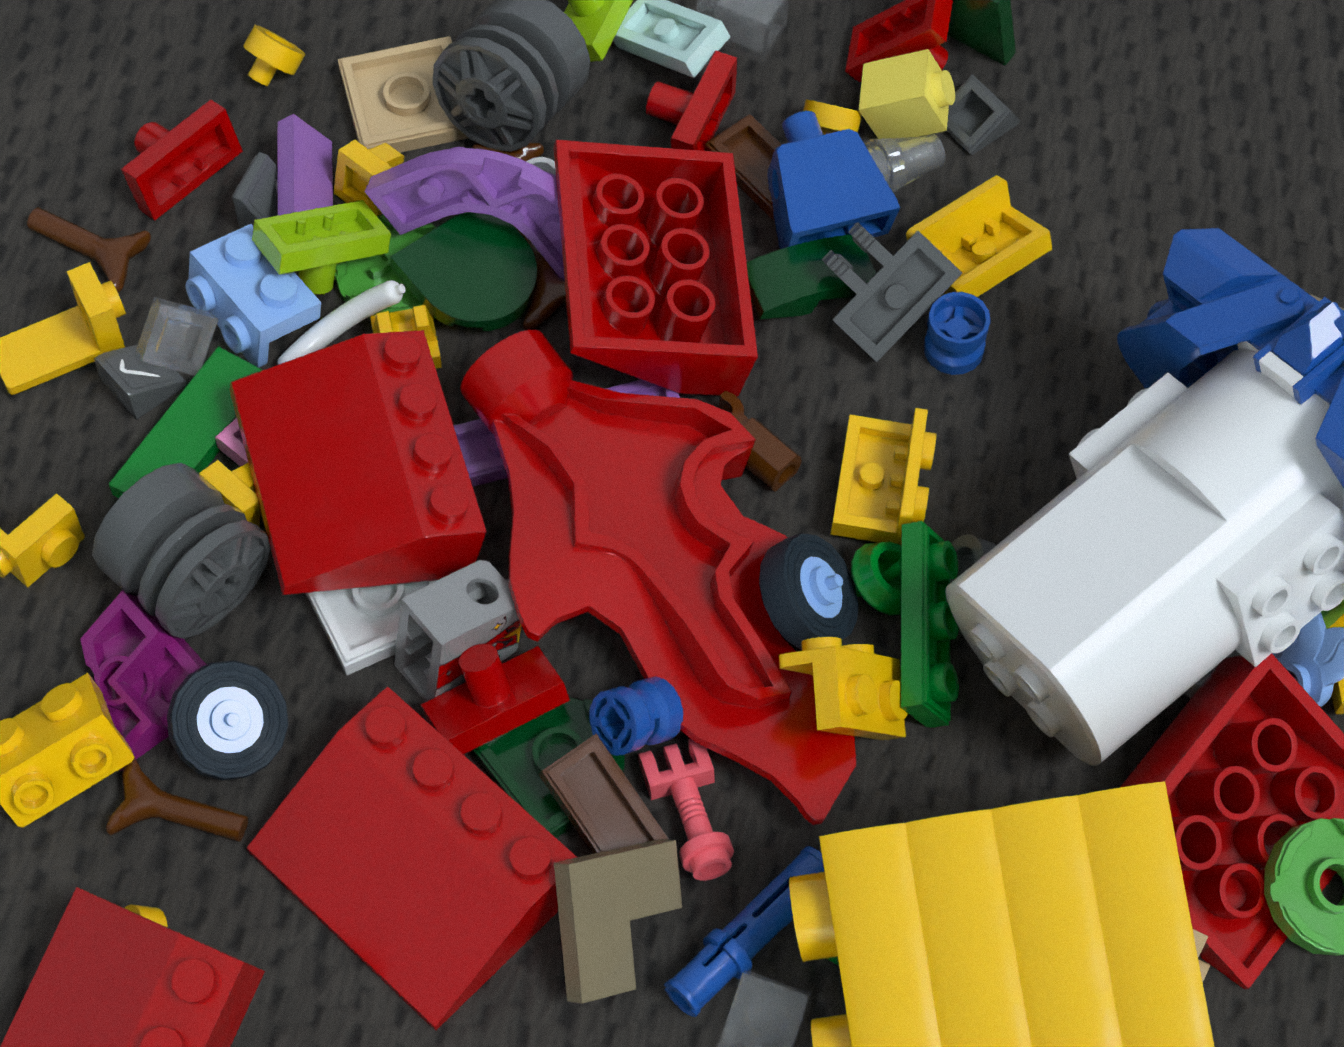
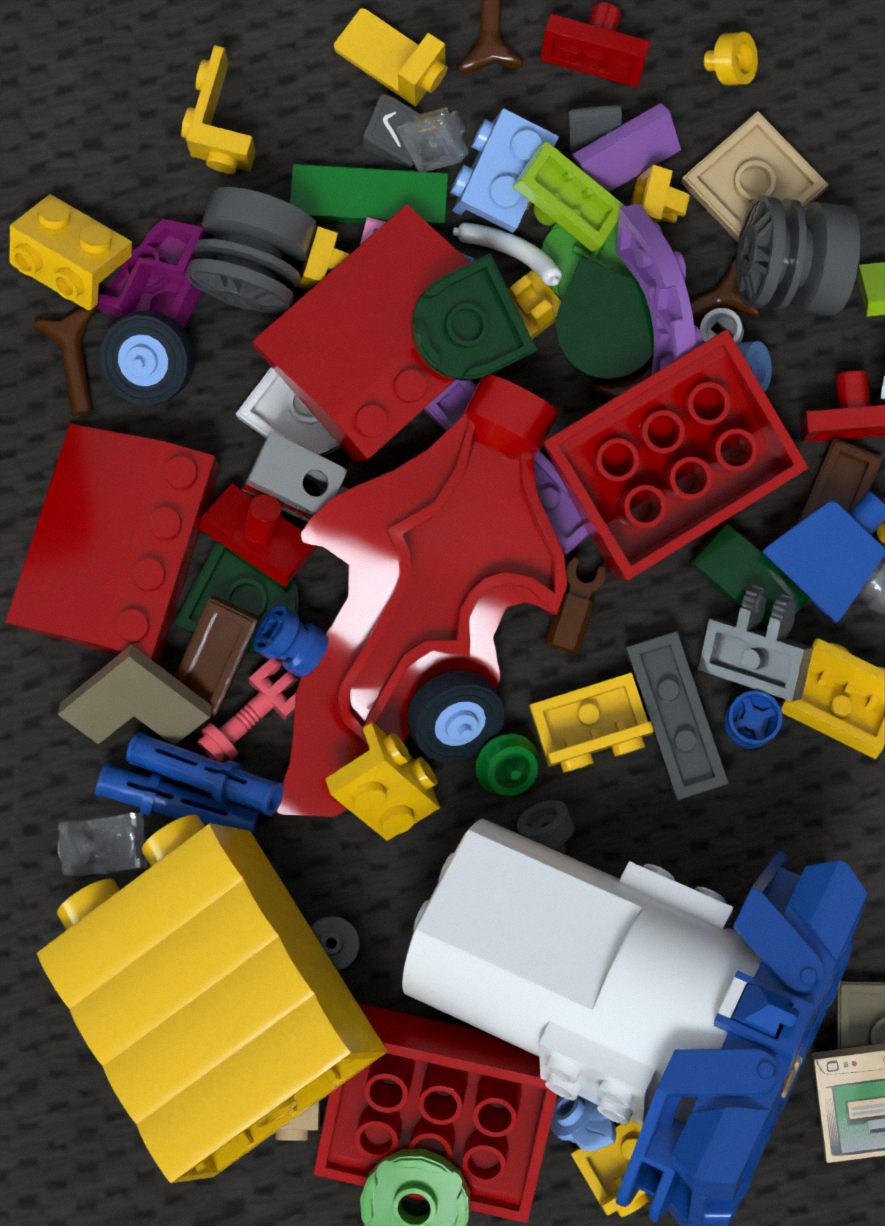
camera: 65 degrees right, 20 degrees up
(402, 363) = (469, 323): none -> dark green tile
(736, 875) = (223, 780): none -> blue pin
(927, 625) = (503, 801): green tile -> none
(956, 403) = (676, 716): none -> dark grey plate

